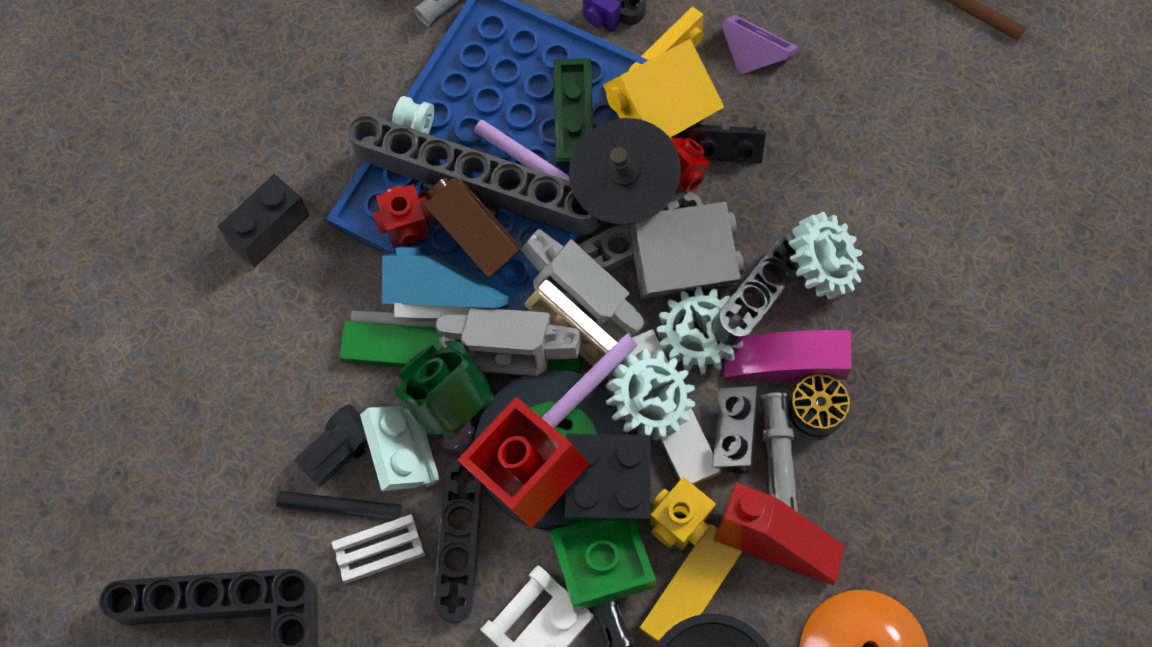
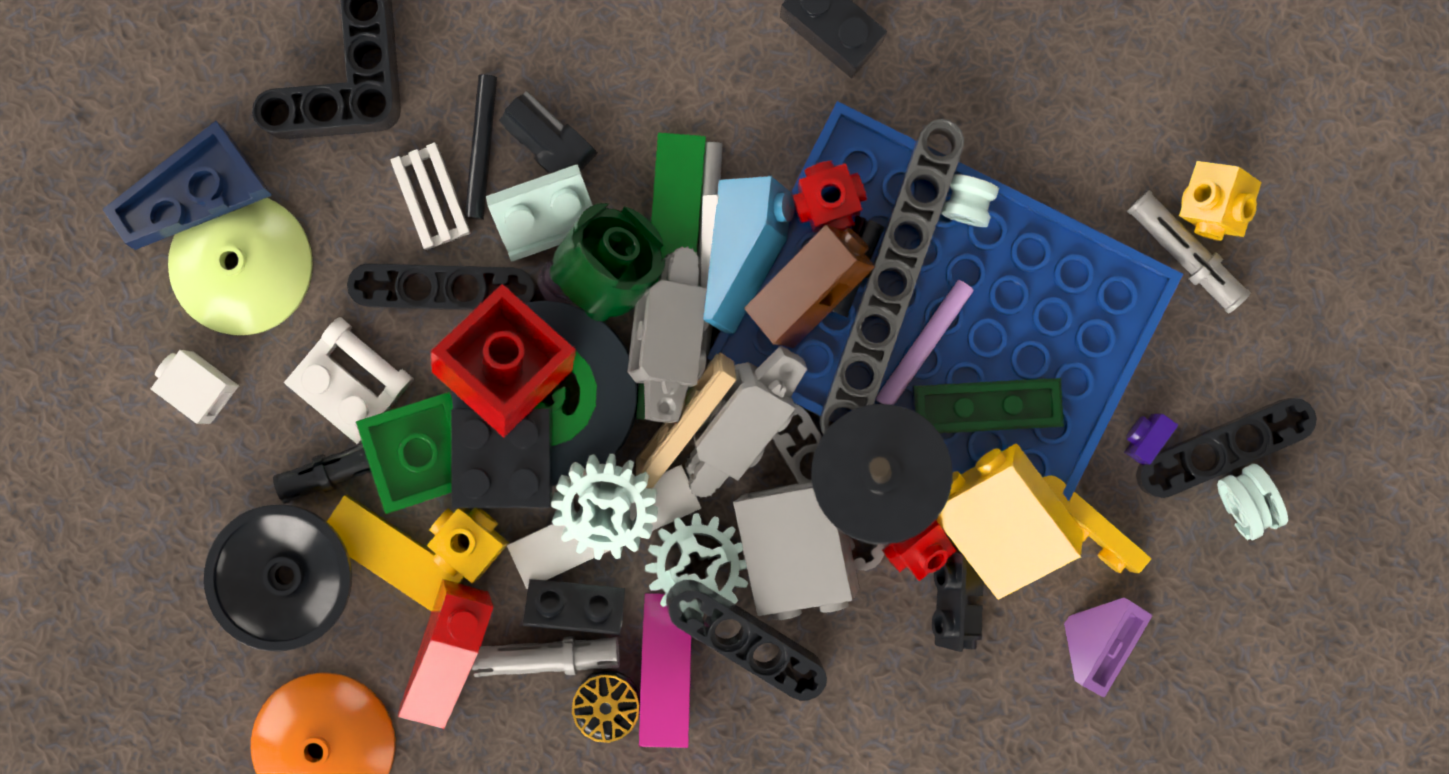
camera: 85 degrees right, 20 degrees up
(590, 380) = (614, 433): lavender bar -> none
(826, 255) = (793, 722): light aqua gear -> none

